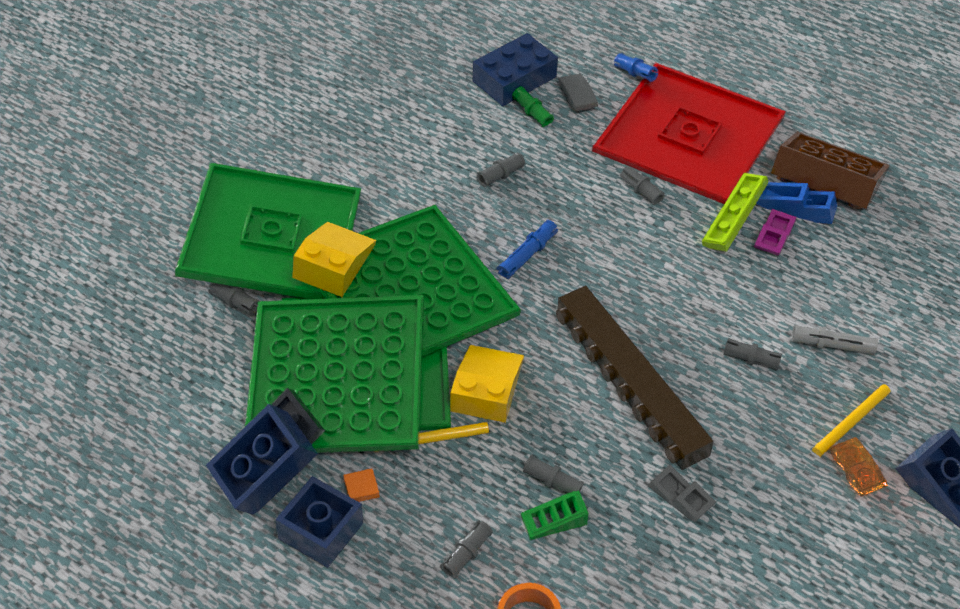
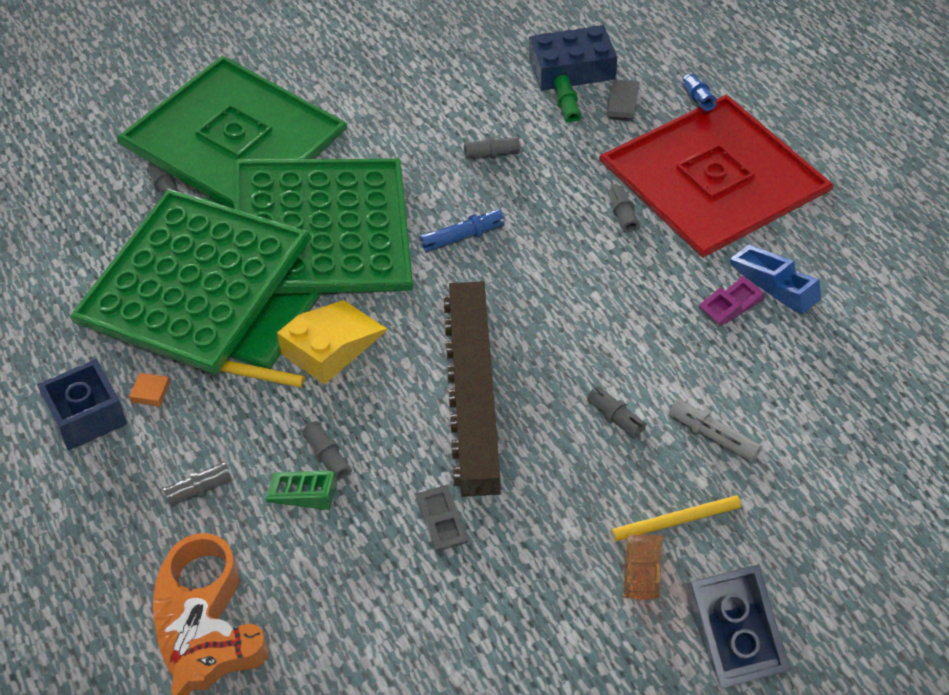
camera: 30 degrees right, 0 degrees up
(261, 459) = (65, 327): dark blue brick -> none
(300, 414) = (121, 304): black plate -> none
(331, 258) = (256, 170): yellow slope -> none
(735, 212) = (701, 265): lime tile -> none
(829, 169) = (839, 256): reddish brown slope -> none

